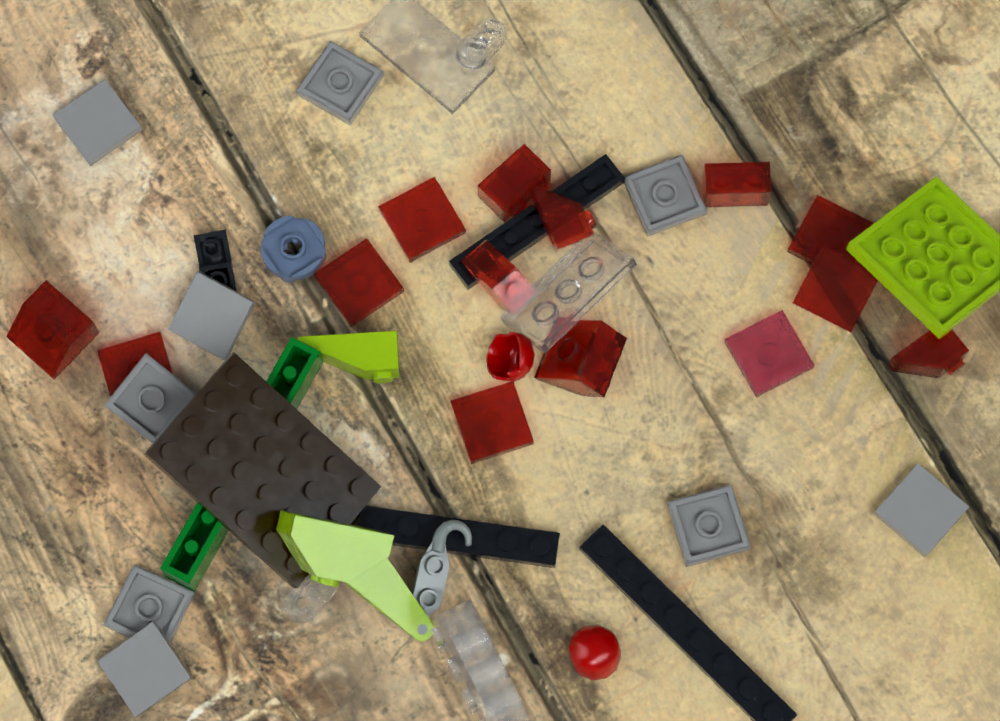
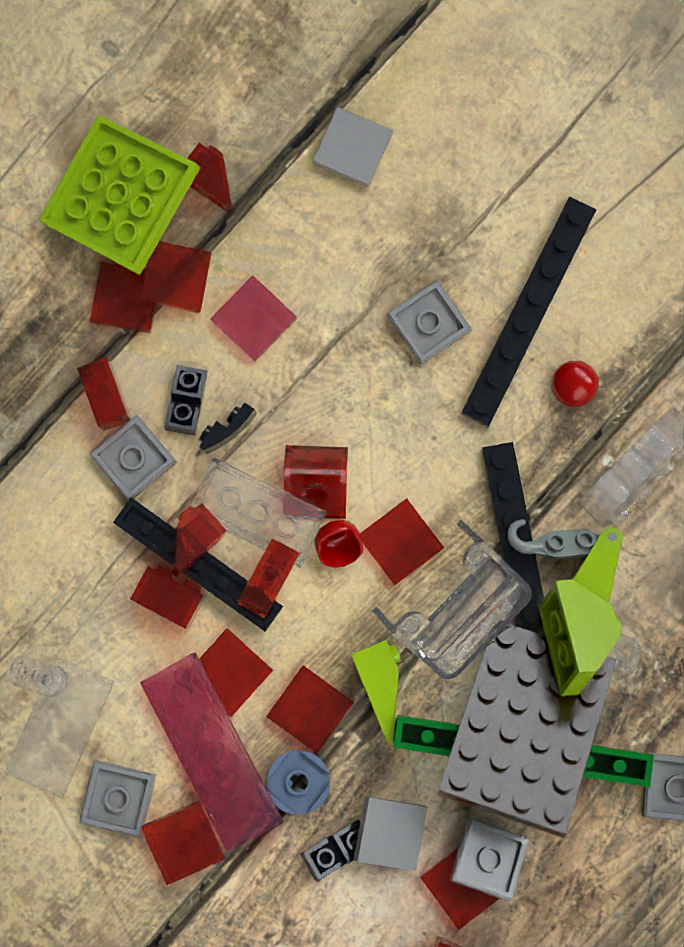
camera: 105 degrees left, 10 degrees up
(276, 126) = (183, 842): none -> clear red tile
(351, 177) = (211, 752): none -> clear pink plate
(388, 453) = (468, 616): none -> clear windscreen
(659, 282) = (218, 435): none -> black slope
(706, 263) = (186, 400): none -> black slope

